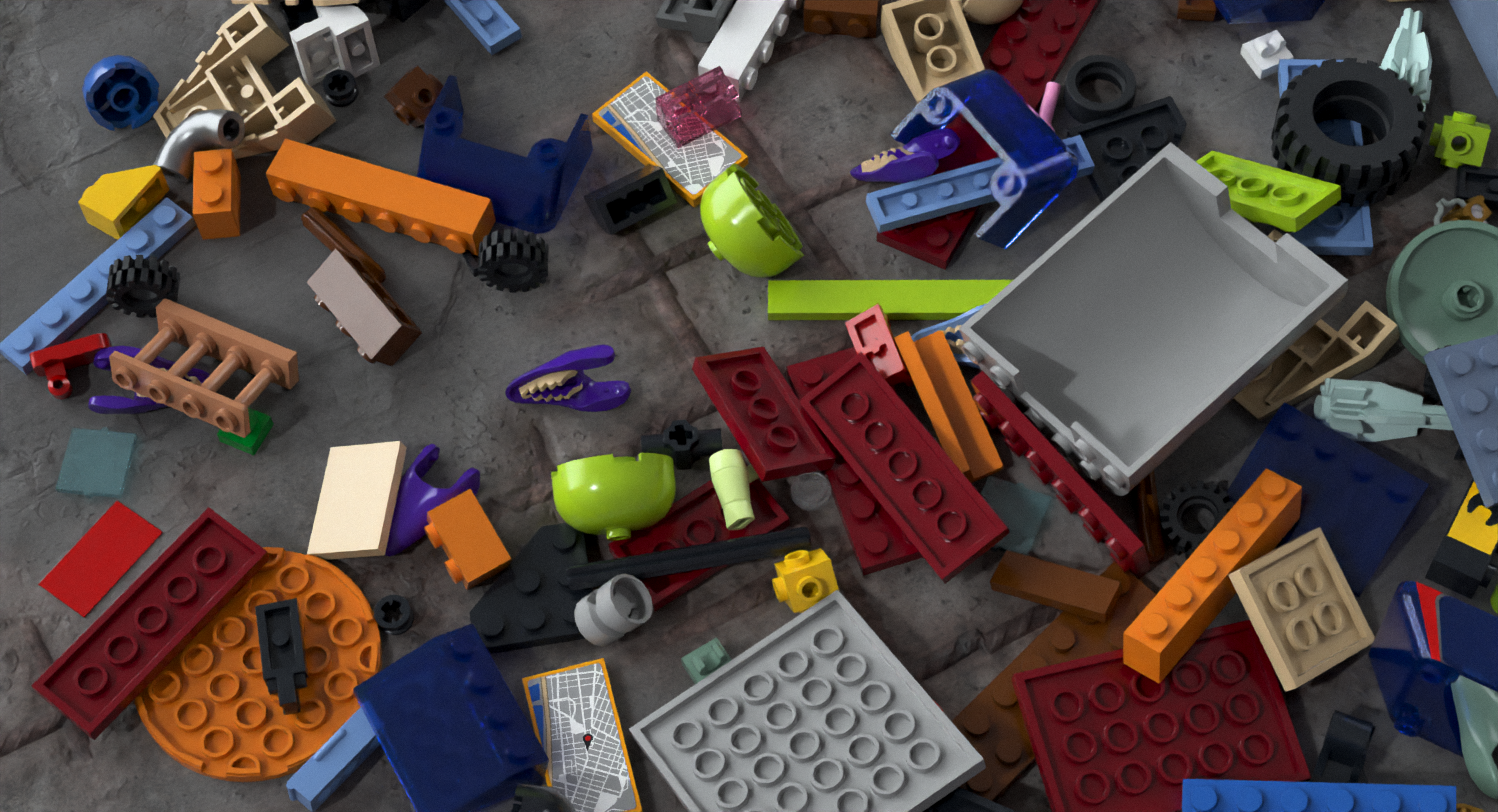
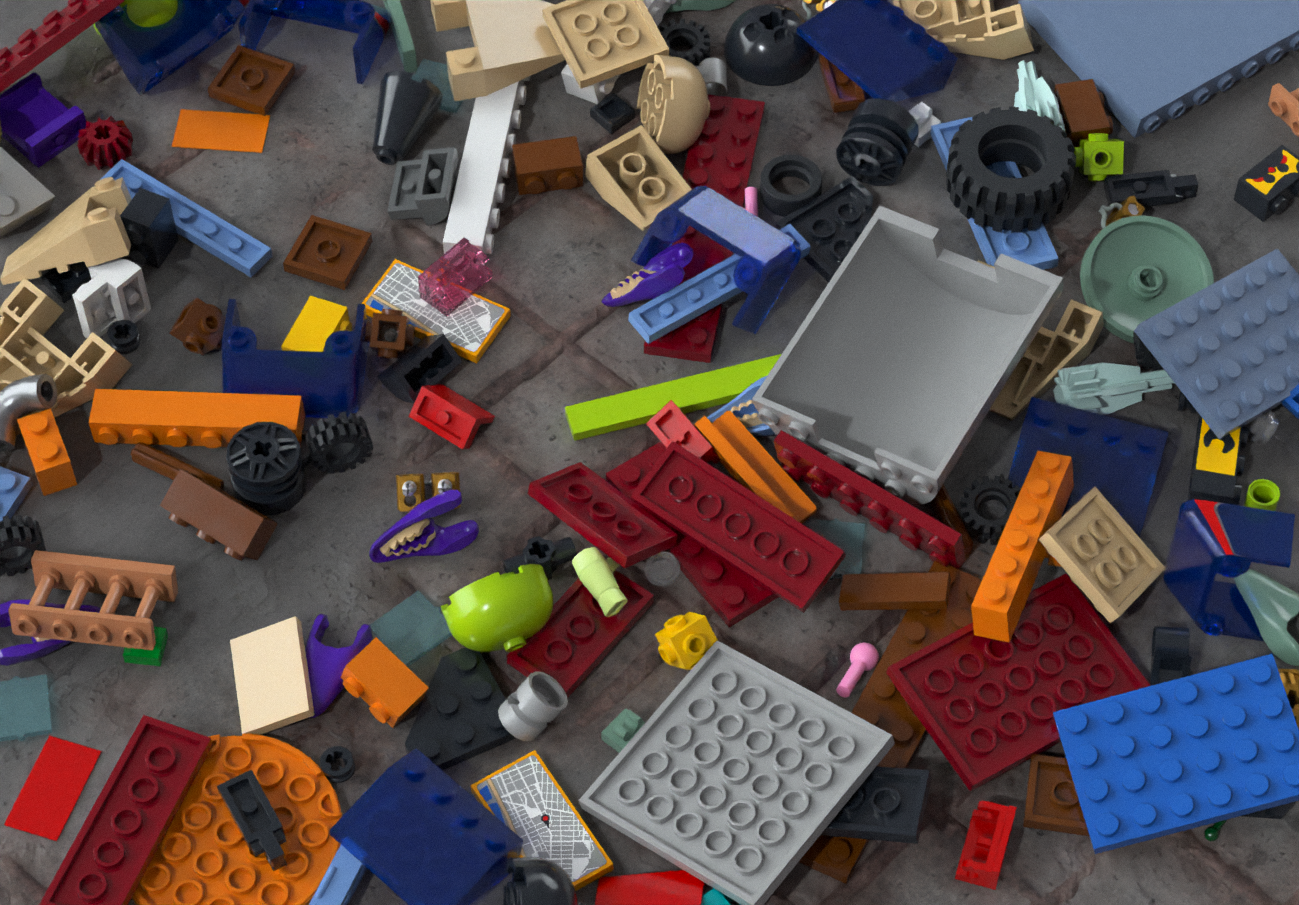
camera: 20 degrees left, 5 degrees down
(428, 269) = (266, 467): none -> black wheel
(520, 485) = (411, 628): none -> clear light blue piece
(533, 122) = (315, 324): none -> yellow brick
(578, 327) = (415, 485): none -> pearl gold piece
(579, 47) = (328, 252): none -> reddish brown plate
(596, 149) = (389, 320): none -> reddish brown brick
(644, 257) = (449, 414): none -> red panel
(690, 557) = (582, 647): black axle -> none
(747, 226) = (533, 366): lime cylinder -> none
(997, 651) = (863, 658): none -> bright pink bar
(1210, 64) = (877, 142): none -> black wheel
(1271, 193) = (973, 233): lime plate -> none
(1457, 82) = (1082, 110): none -> reddish brown brick

